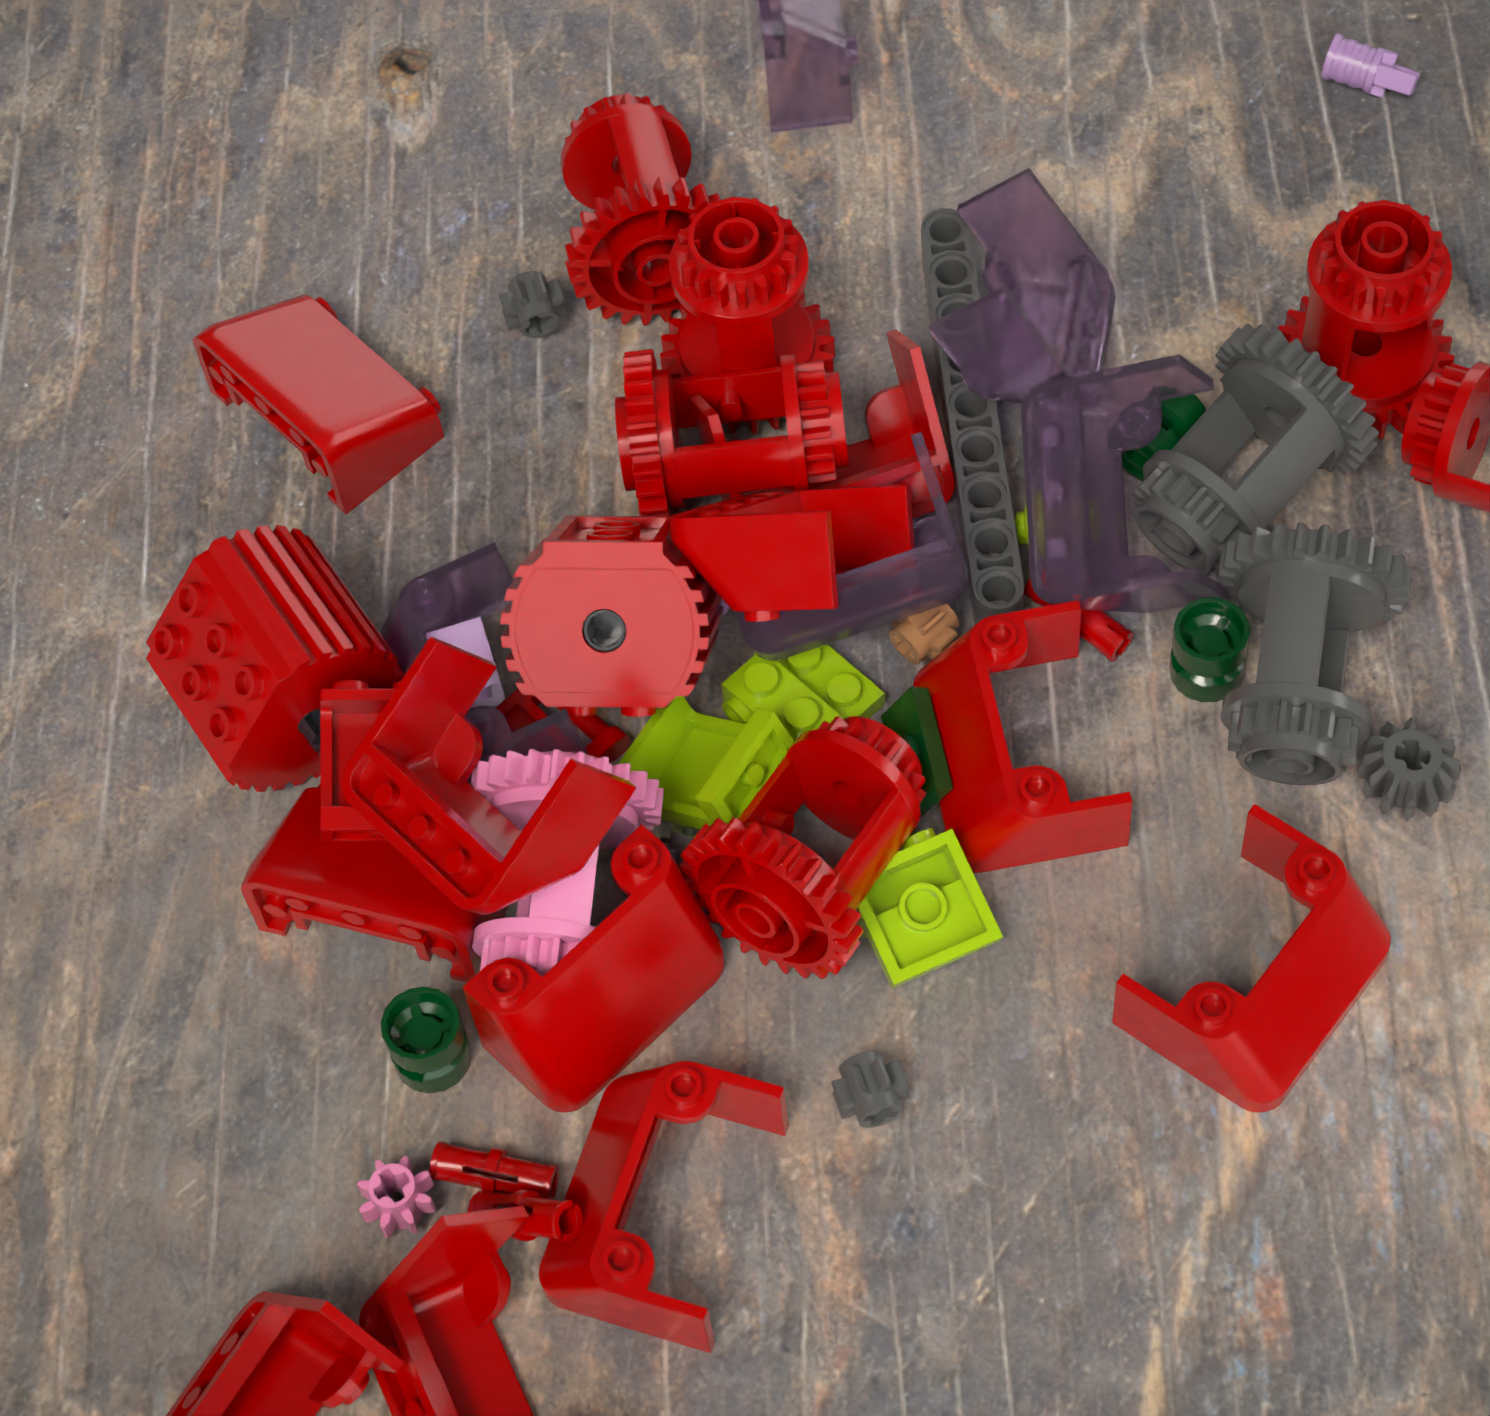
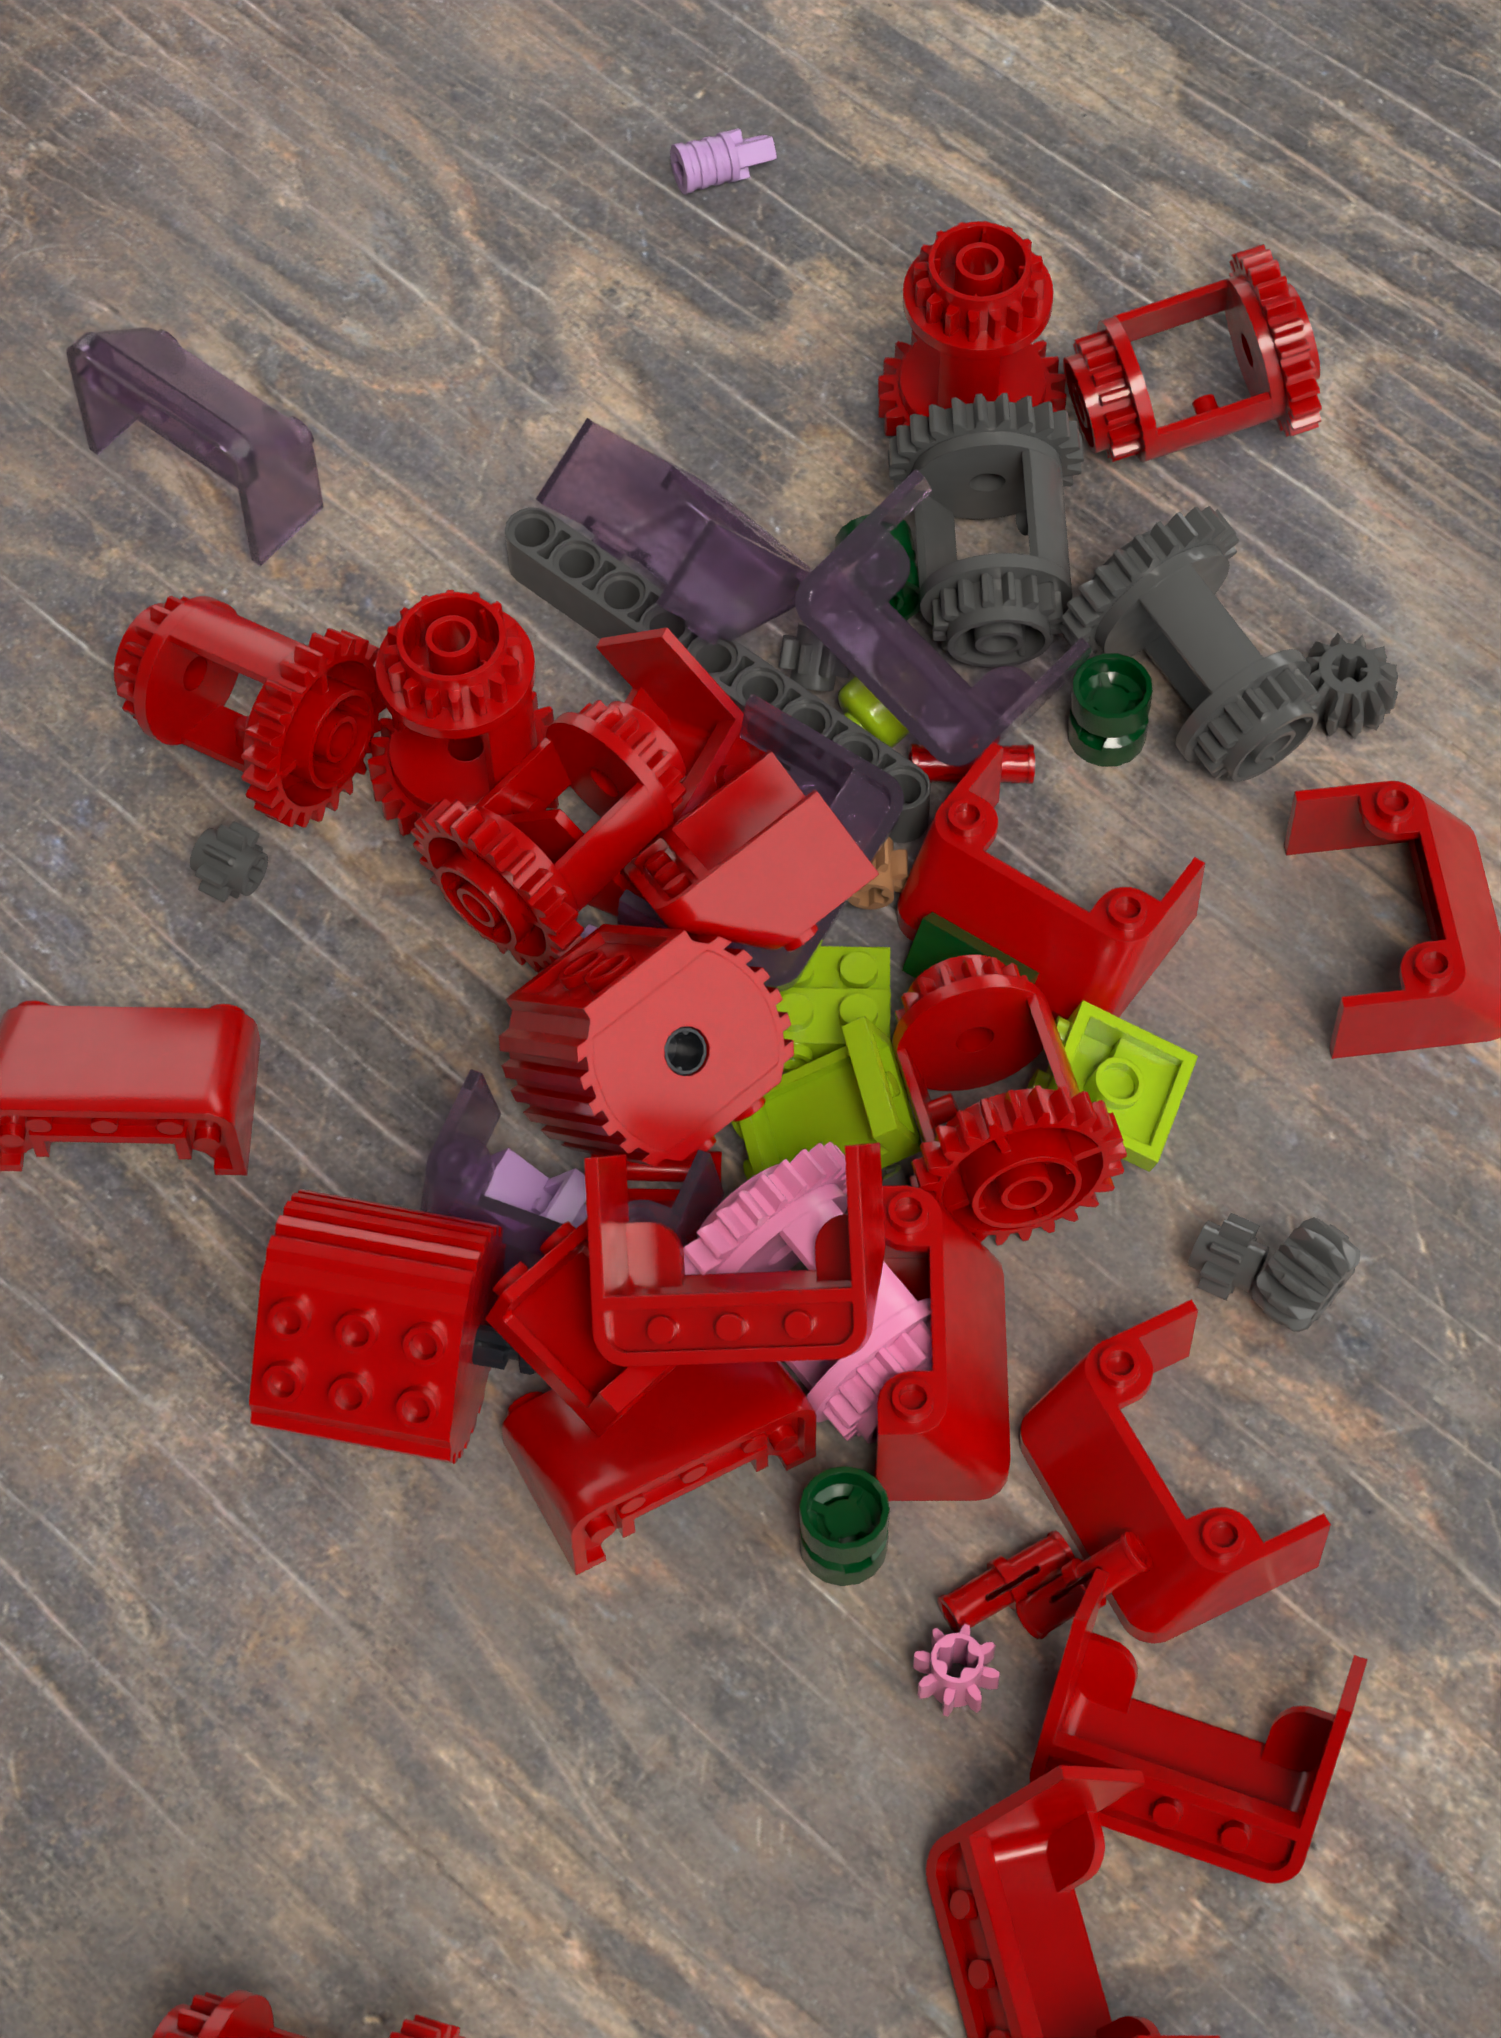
camera: 50 degrees left, 0 degrees up
(902, 1146) = (1305, 1274): none -> dark grey gear

